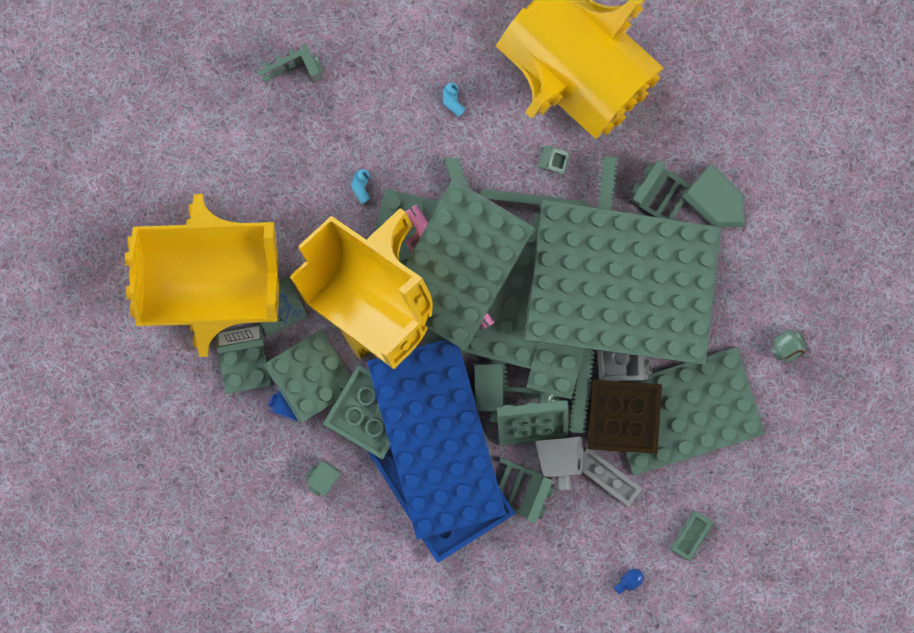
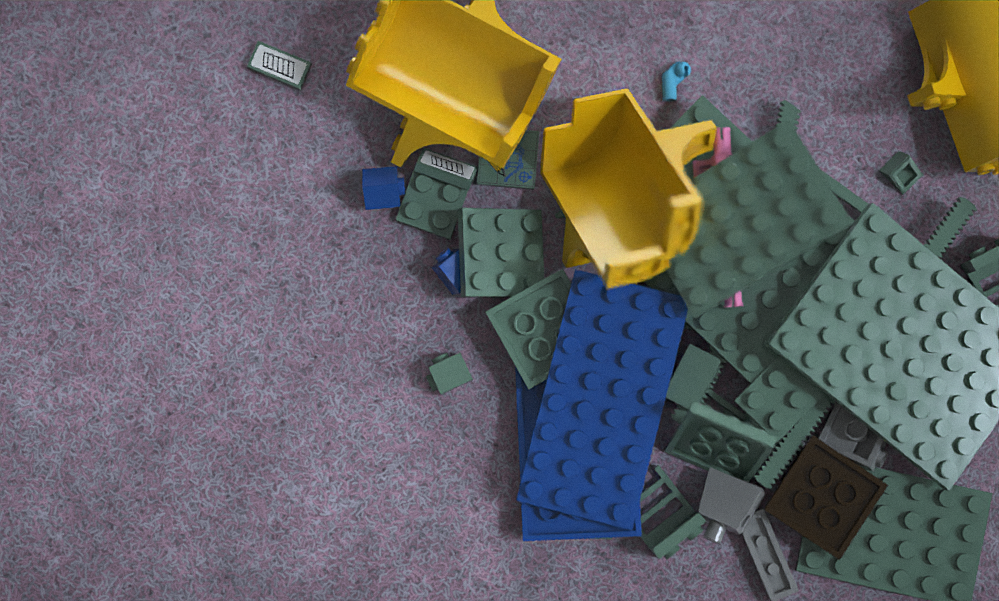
camera: 25 degrees right, 5 degrees down
(83, 332) = (279, 65): none -> tile
(203, 378) = (382, 187): none -> blue brick
(450, 97) = (824, 43): medium azure arm -> none

